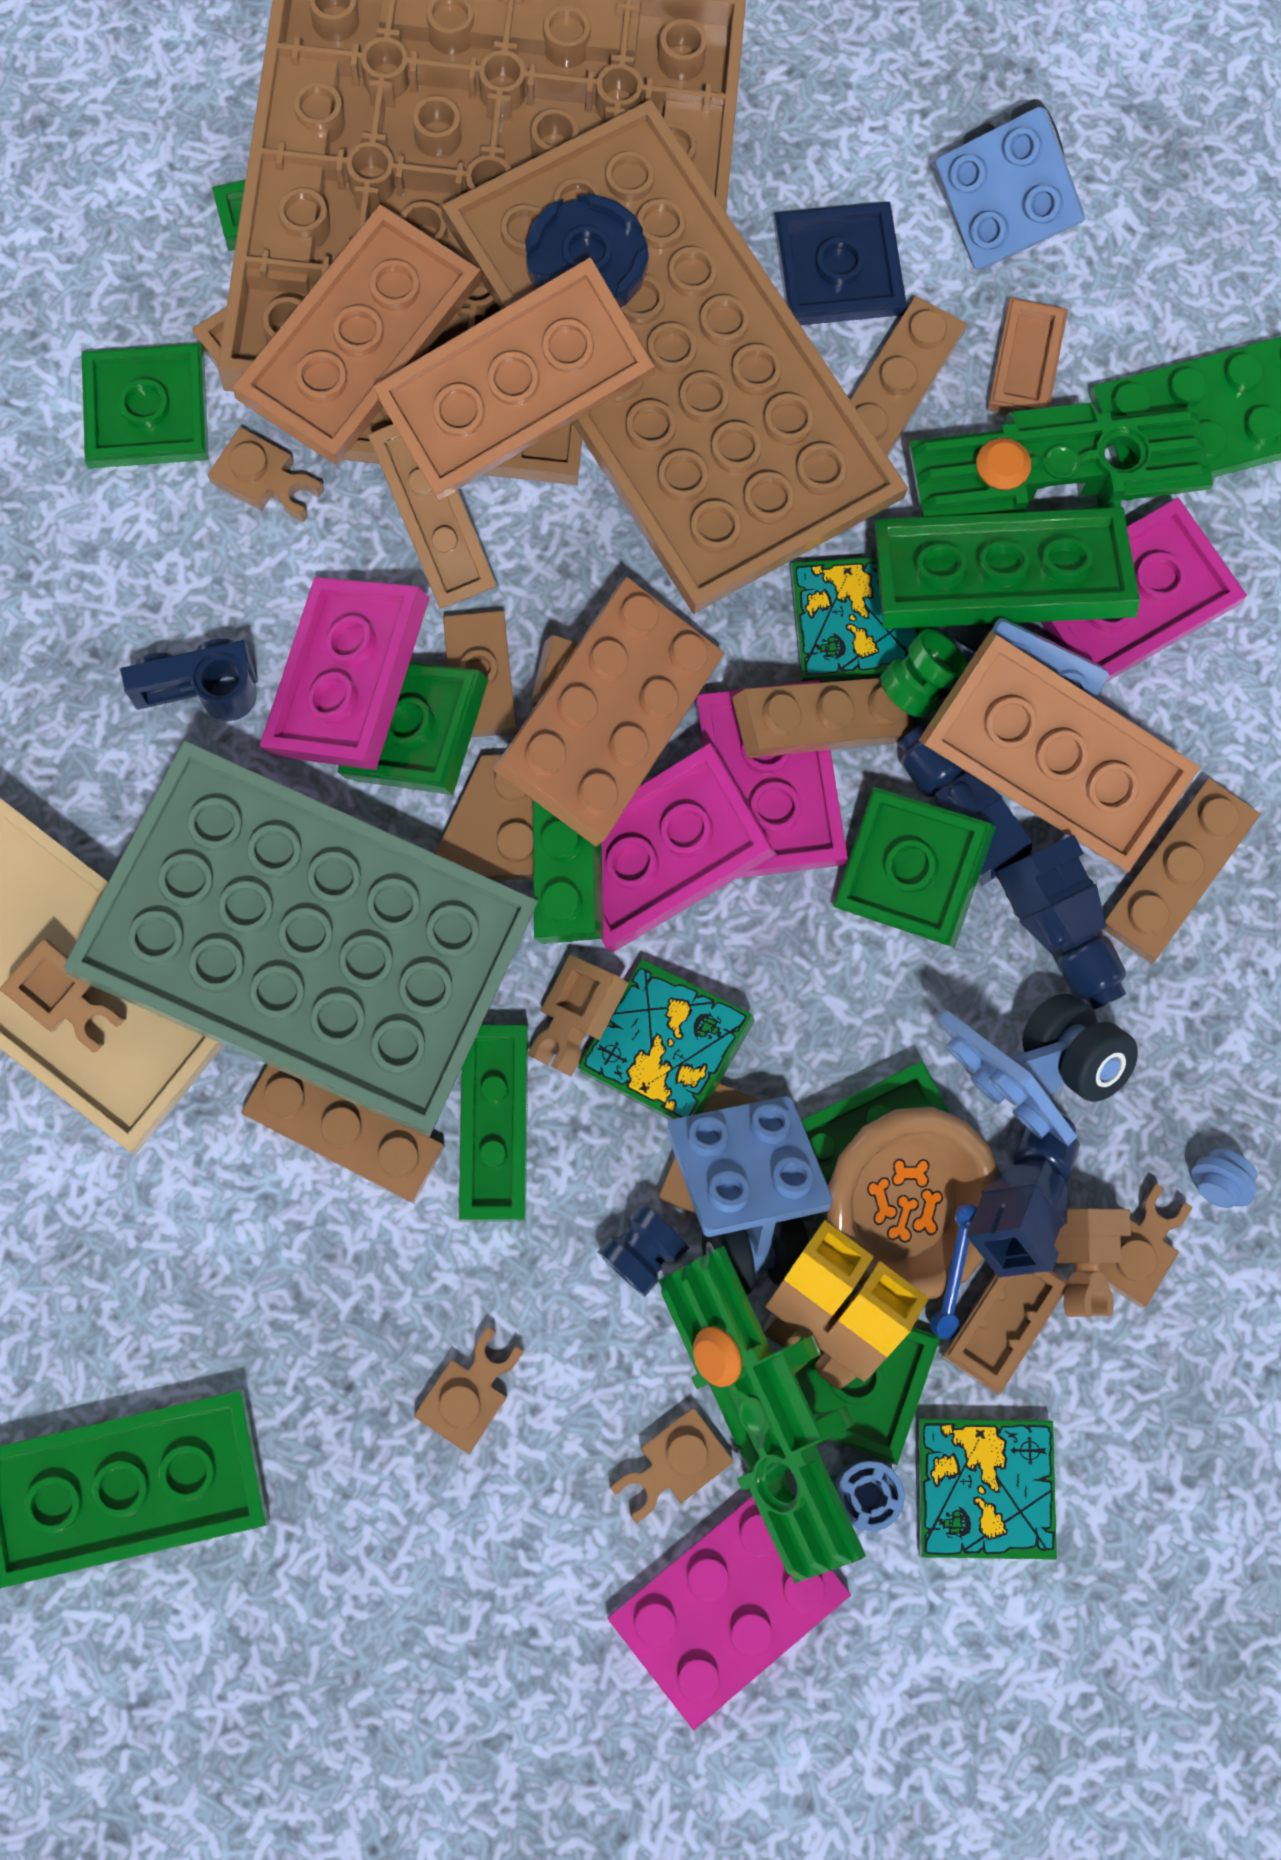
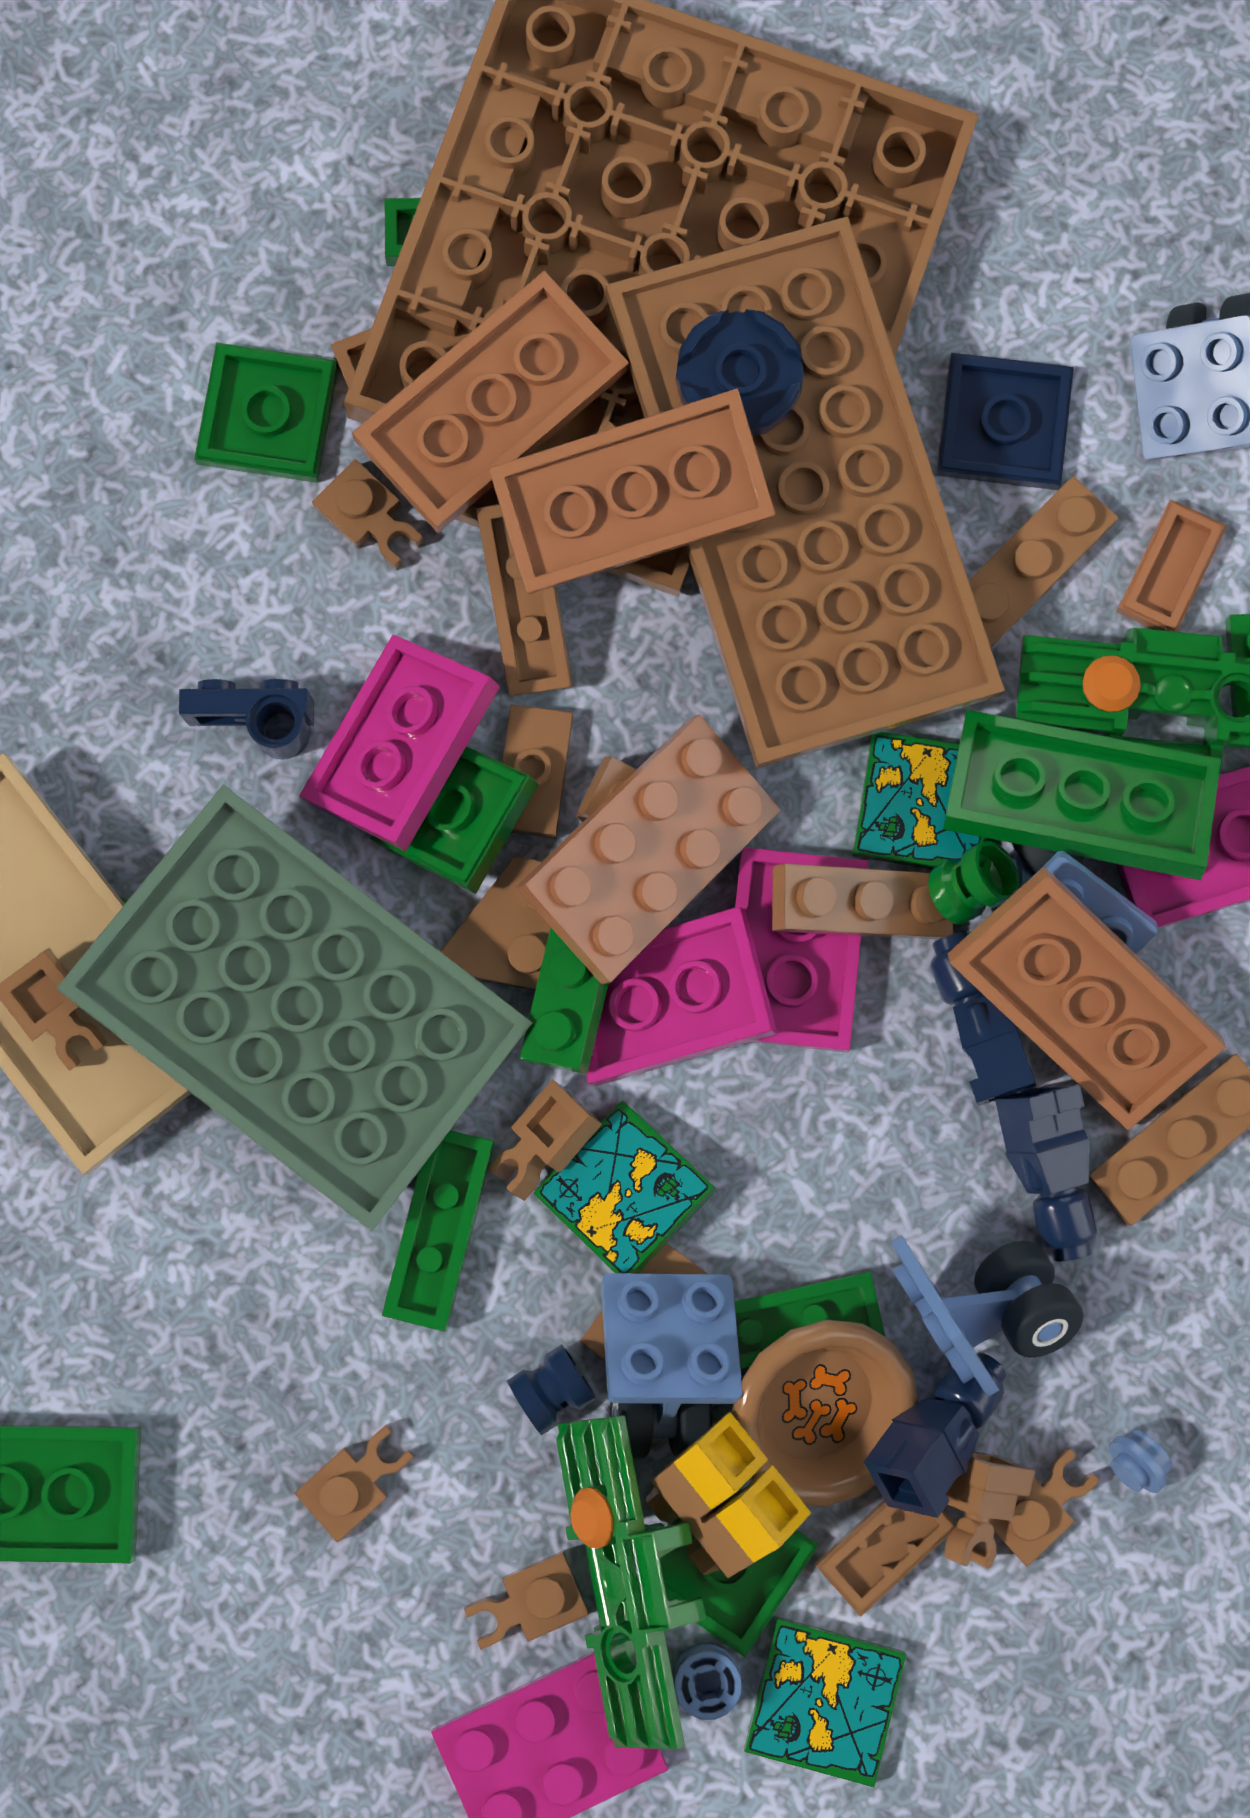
camera: 20 degrees right, 5 degrees up
(344, 1133) = (292, 1205): medium nougat plate -> none
(914, 866) = (913, 1076): green tile -> none
(944, 1322) = (825, 1532): blue hinge -> none

